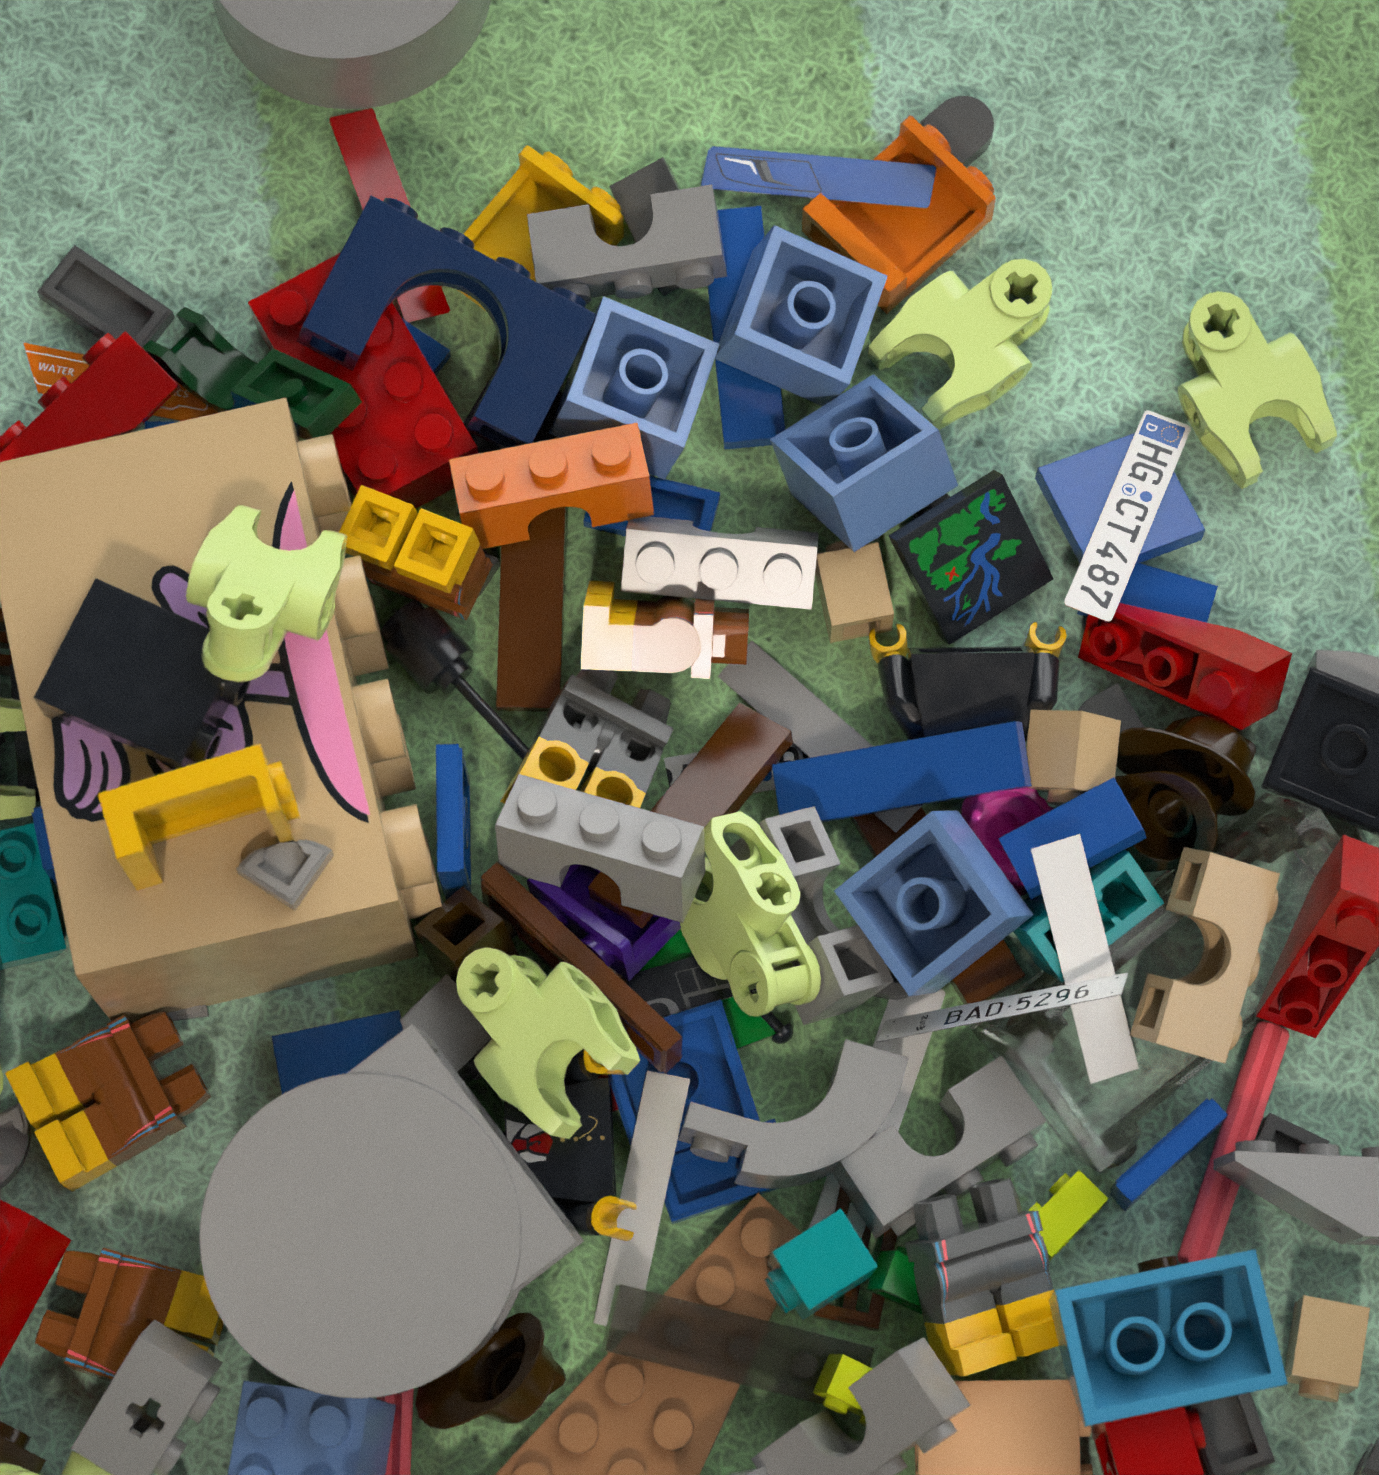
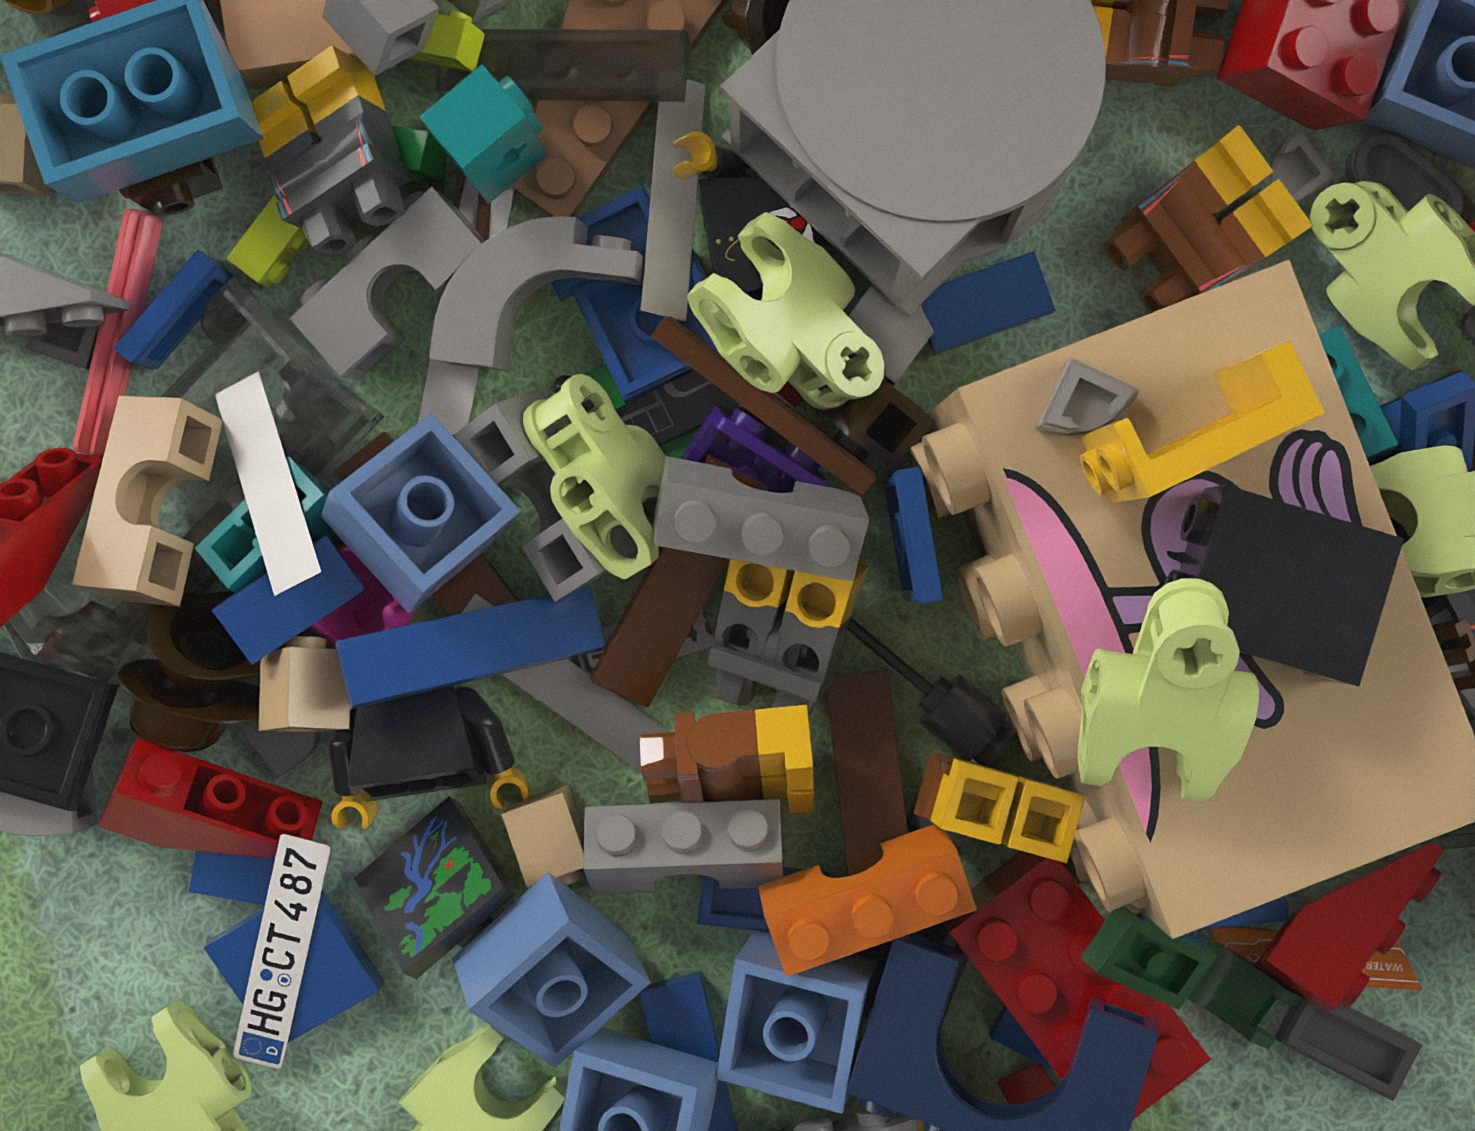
camera: 170 degrees right, 15 degrees up
(1003, 1007) = (338, 422): white sticker -> none

